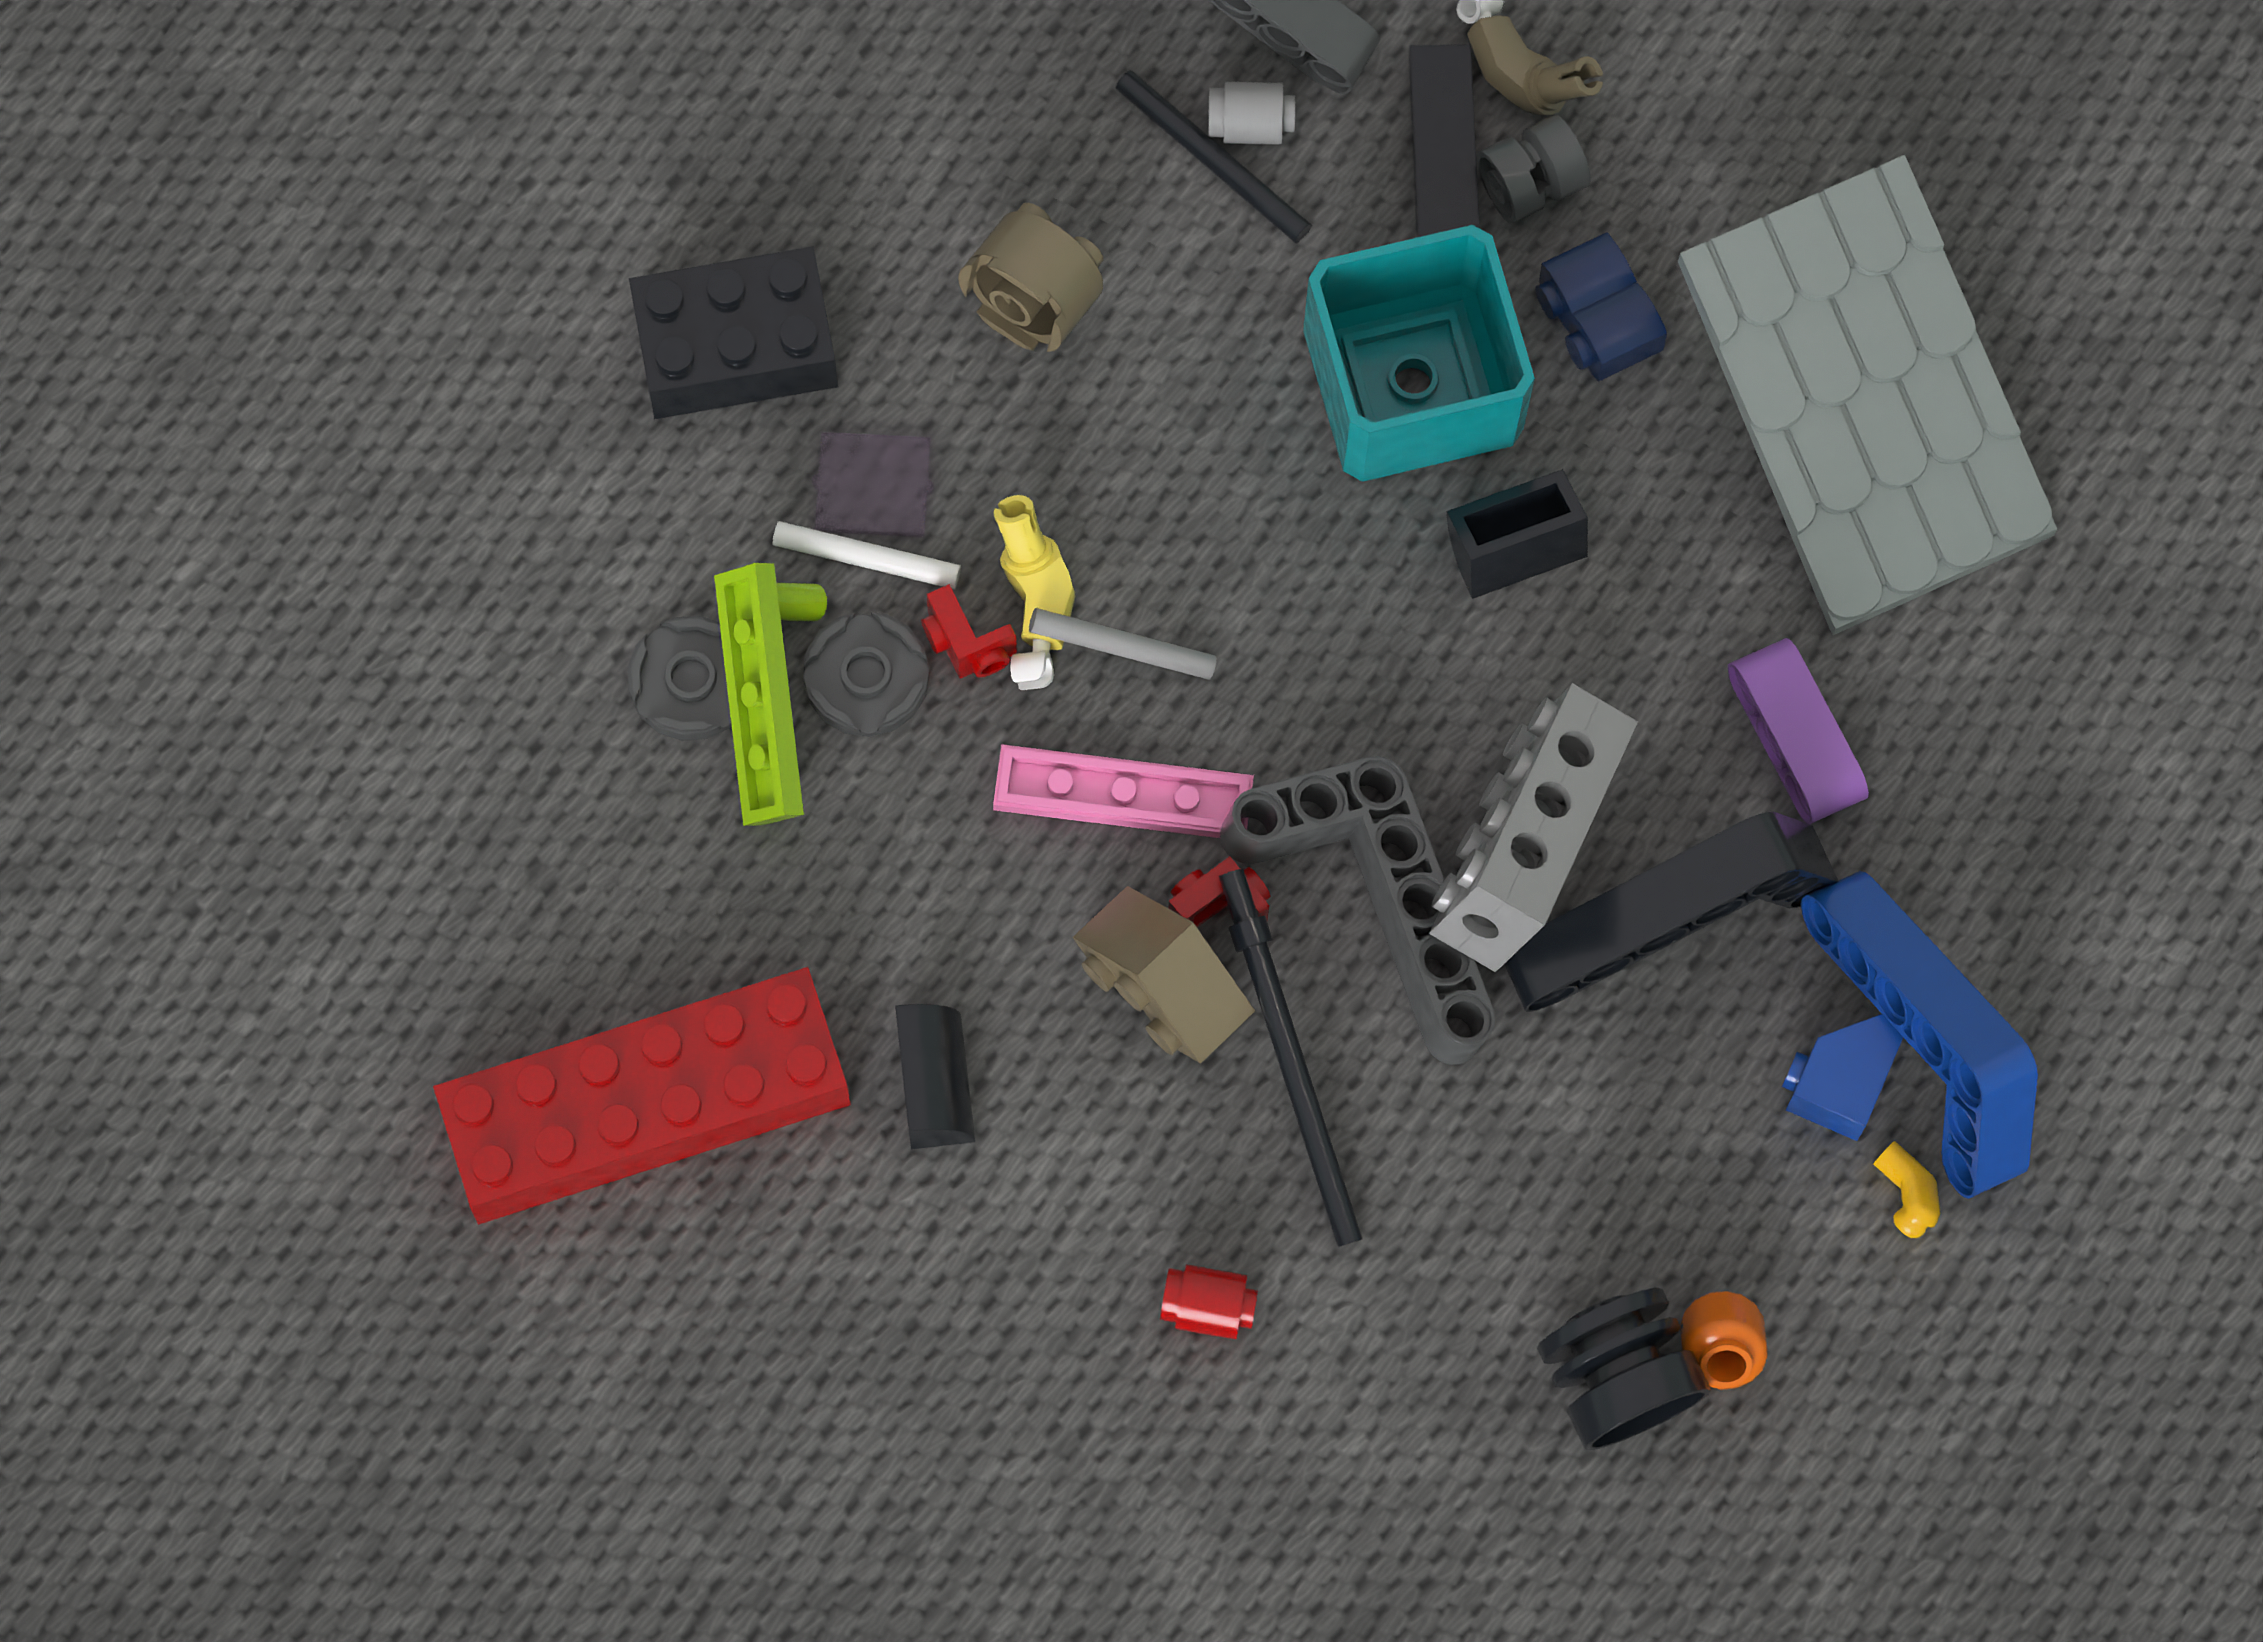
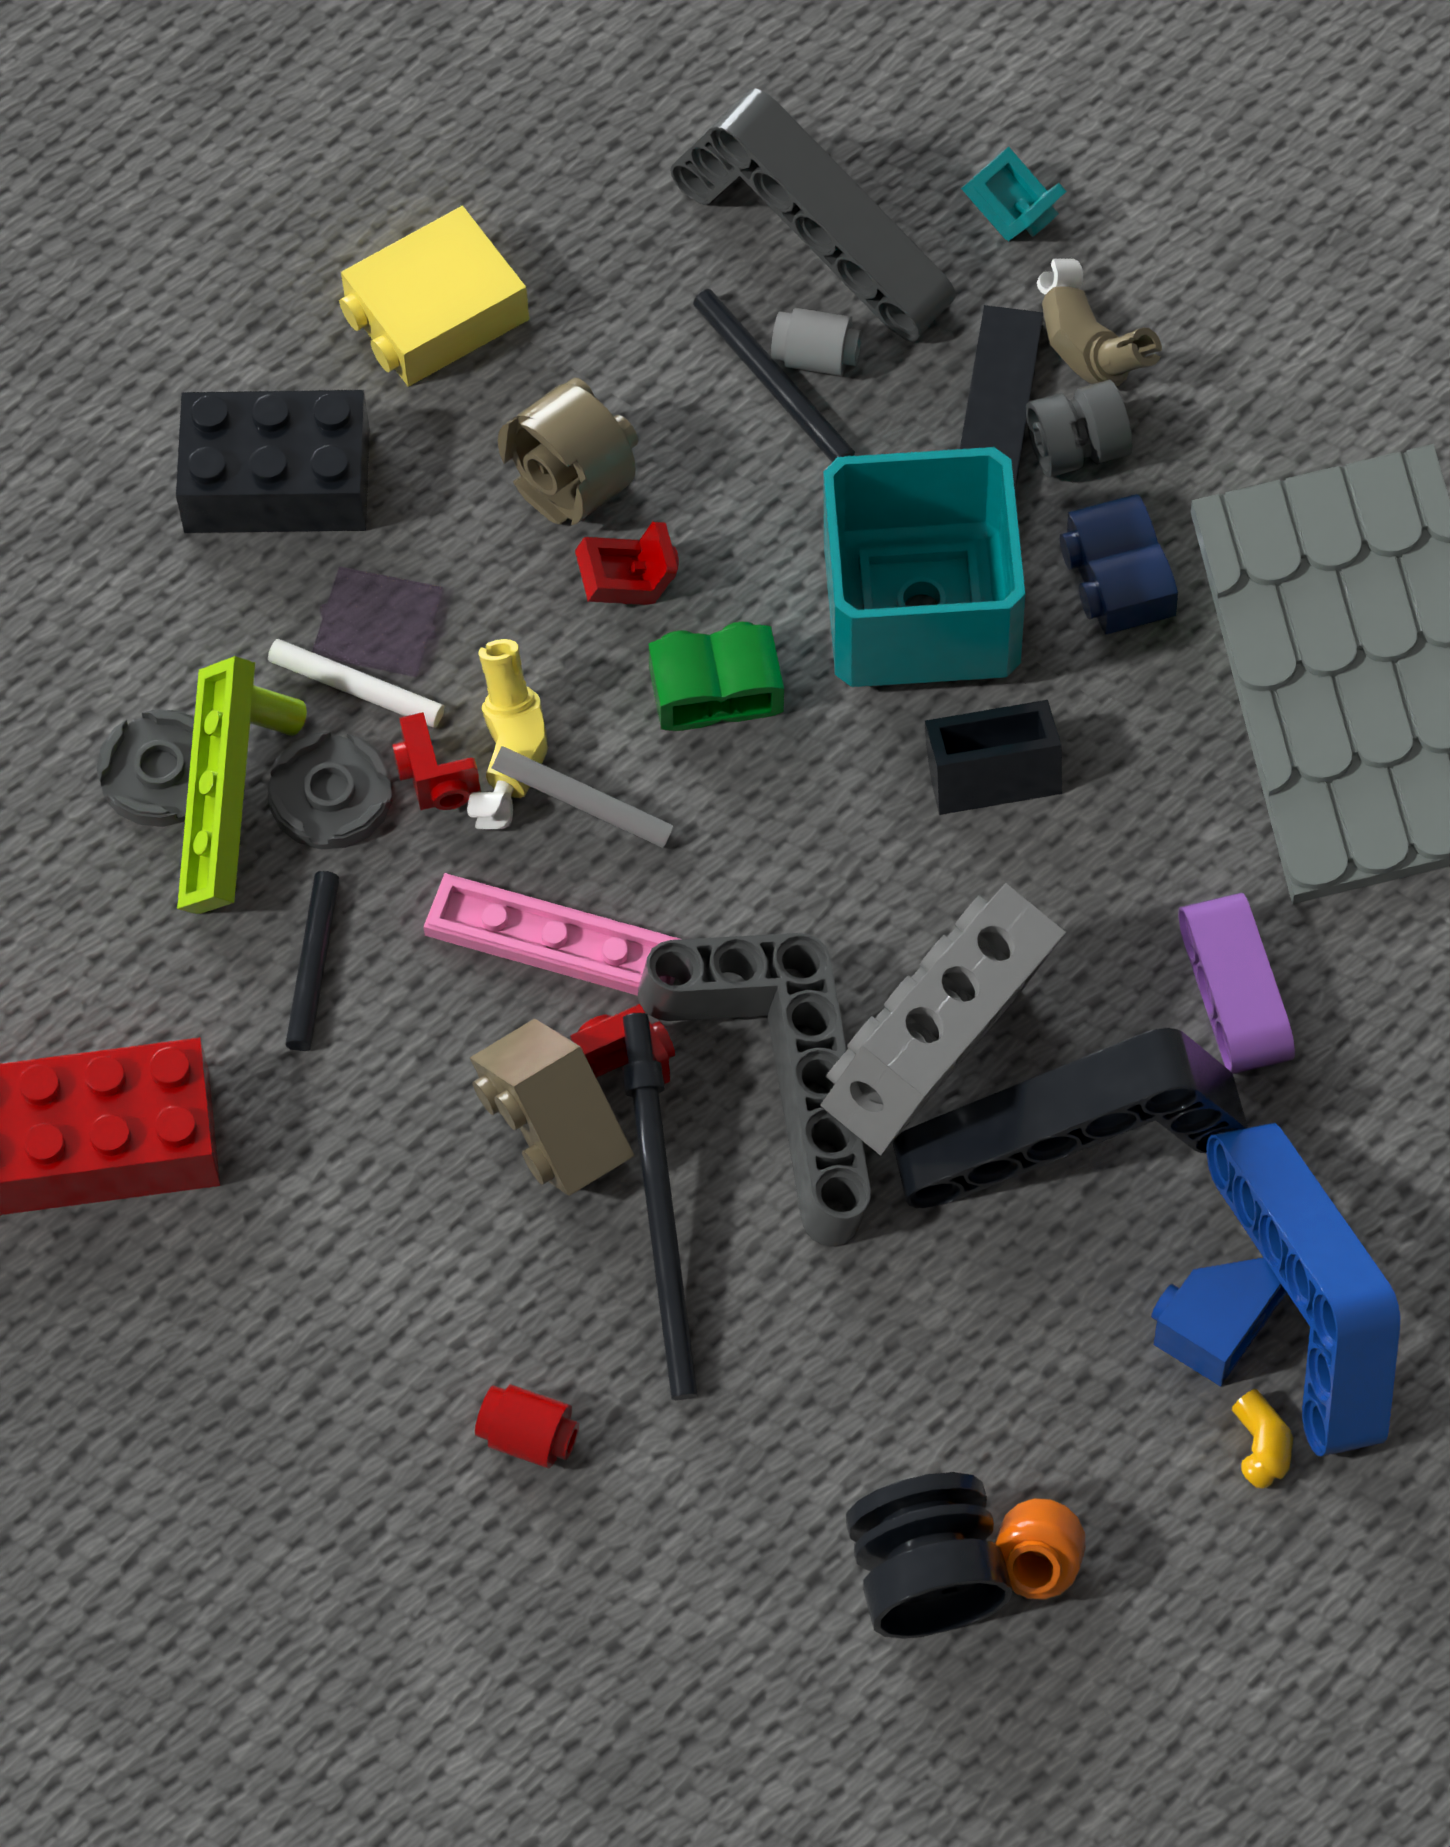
camera: 15 degrees right, 10 degrees down
(854, 124) = (433, 296): none -> light yellow brick
(889, 857) = (312, 961): none -> black bar
(934, 1075) = (304, 1166): black brick -> none
(1115, 389) = (628, 568): none -> red bracket
(1226, 492) = (715, 676): none -> green brick

